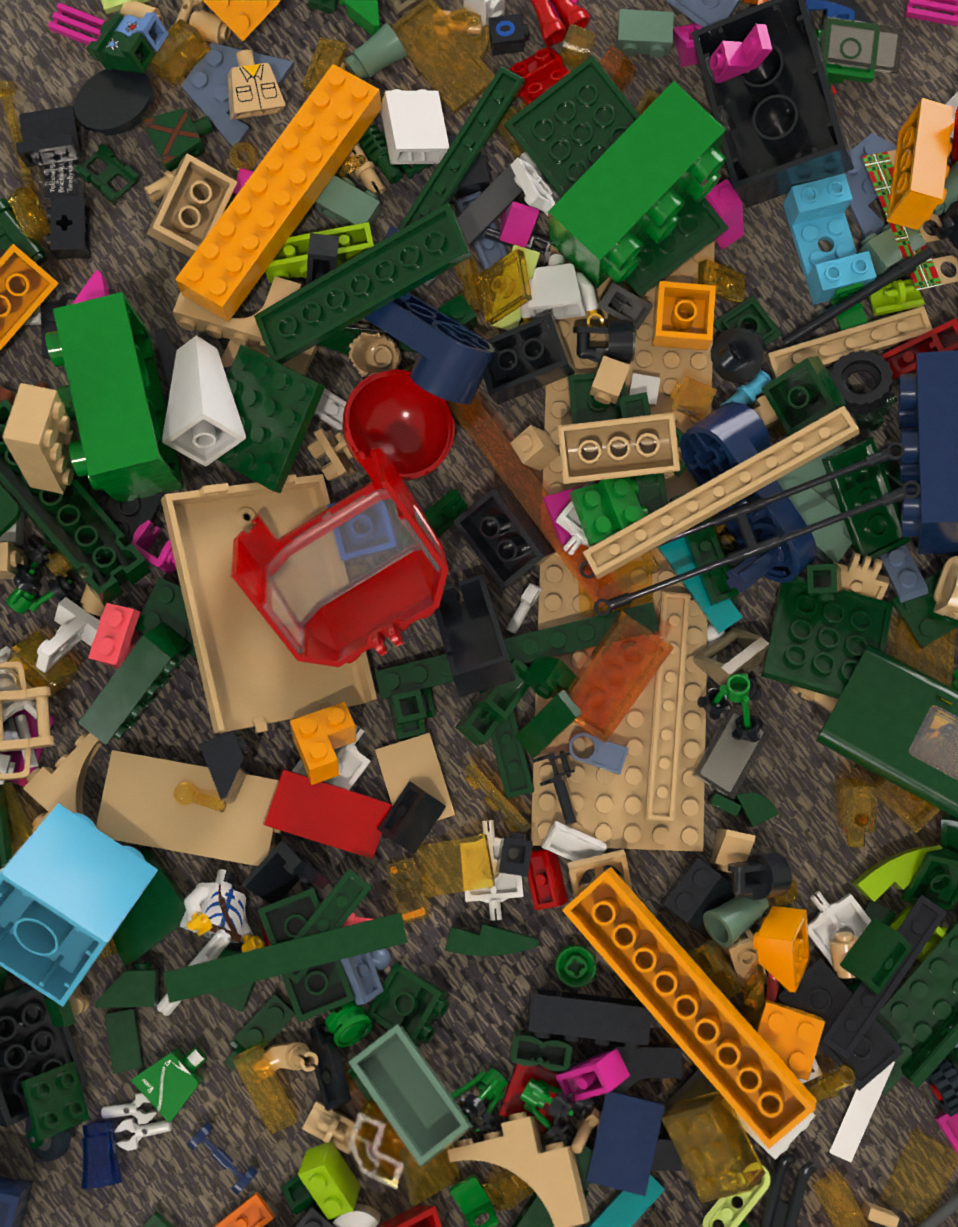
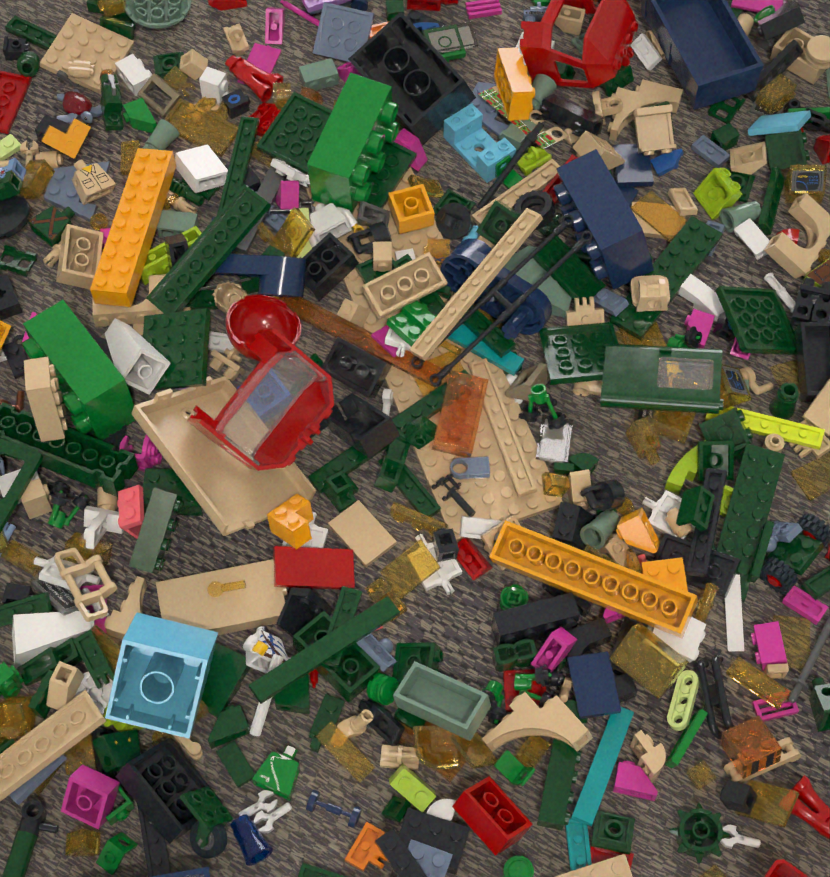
camera: 20 degrees left, 20 degrees down
(57, 565) = (75, 485): clear yellow plate -> none
(60, 1015) = (186, 752): dark green tile -> none
(228, 763) = (235, 551): black slope -> none
(411, 817) = (369, 550): black panel -> none
(488, 942) = (452, 606): dark green slope -> none
(548, 724) = (431, 456): dark green tile -> none
(703, 824) = (555, 484): none -> clear yellow brick
(737, 58) = (380, 61): dark pink slope -> none
(824, 581) = (563, 318): dark green brick -> none
(887, 1179) = (769, 644): none -> dark pink piece

